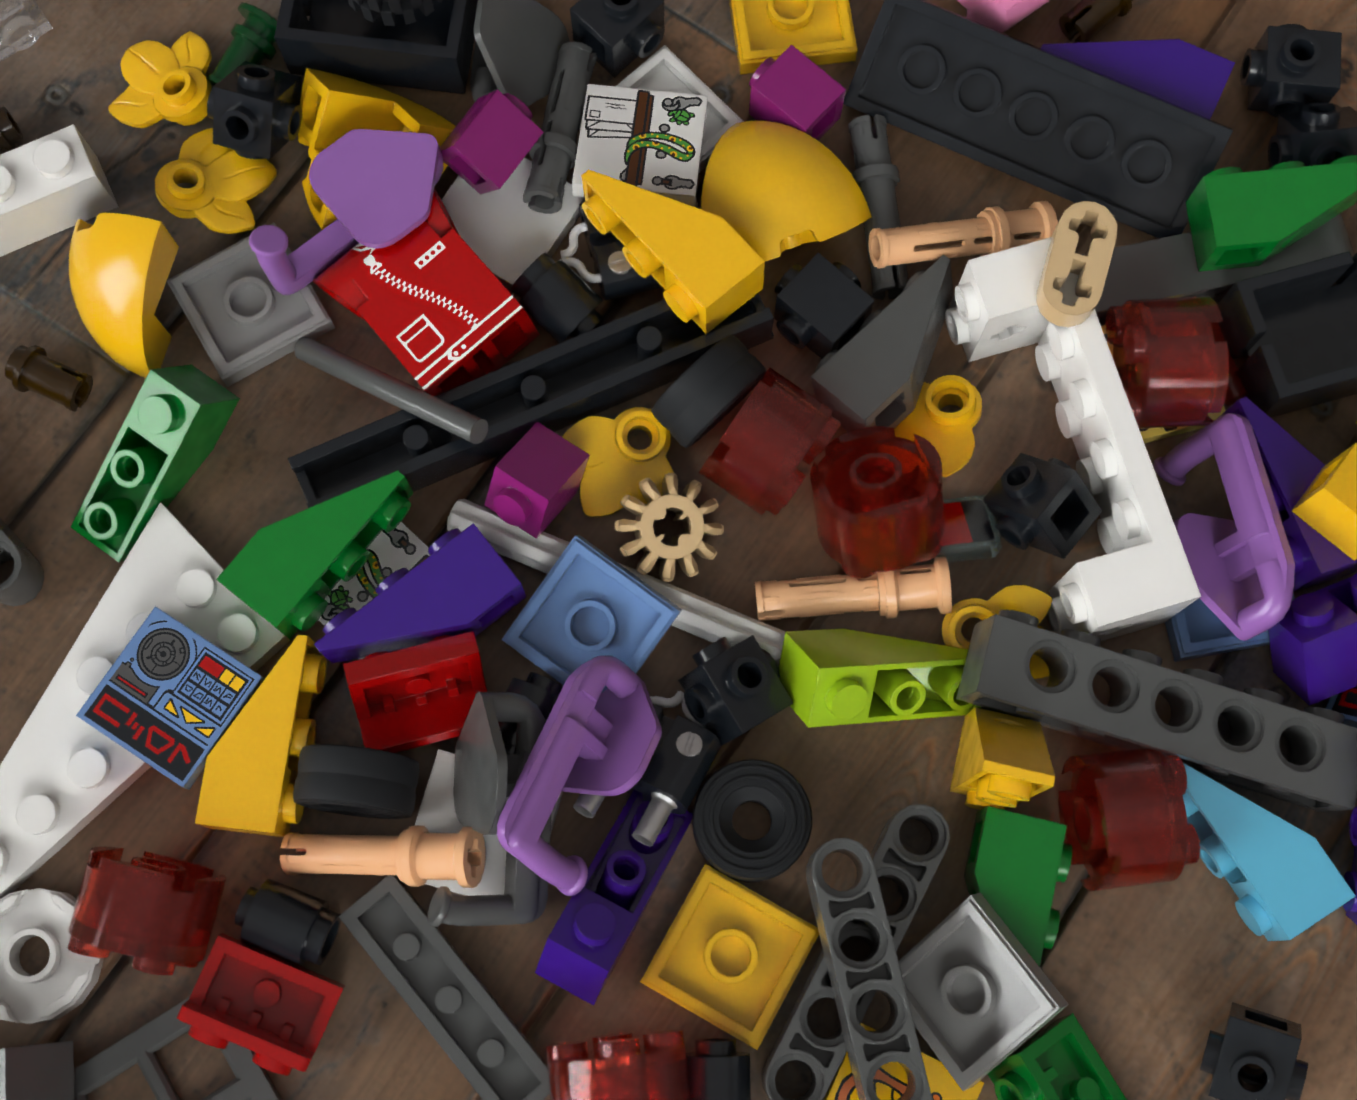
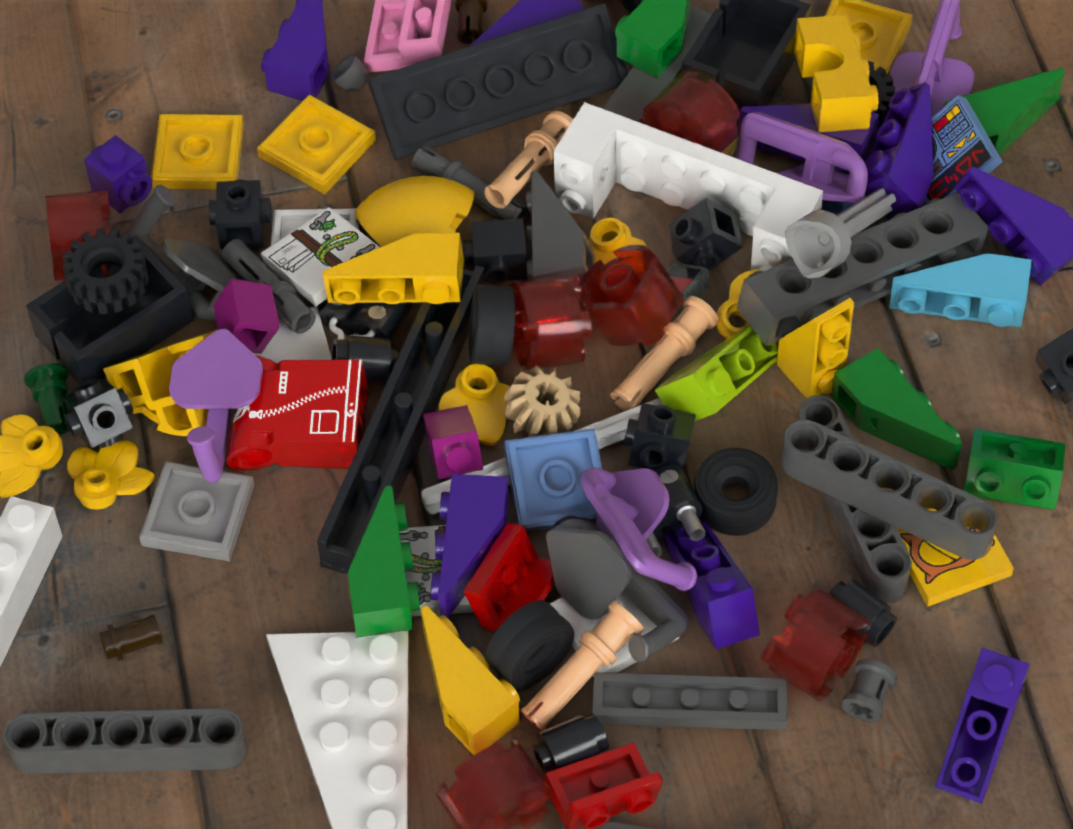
camera: 45 degrees left, 20 degrees down
(117, 283) = (122, 553): yellow brick -> none
(153, 455) = (238, 621): green slope -> none
(170, 697) = (389, 699): tile -> none
(392, 390) = (330, 465): dark grey bar -> none
(730, 956) = (793, 557): yellow tile -> none
(796, 94) = (368, 170): magenta brick -> none
(976, 991) = (925, 439): light grey tile -> none
(1090, 267) = (599, 110): tan beam -> none
(1121, 660) = (824, 239): none -> light grey piece
(1128, 818) = (901, 319): clear red brick -> none

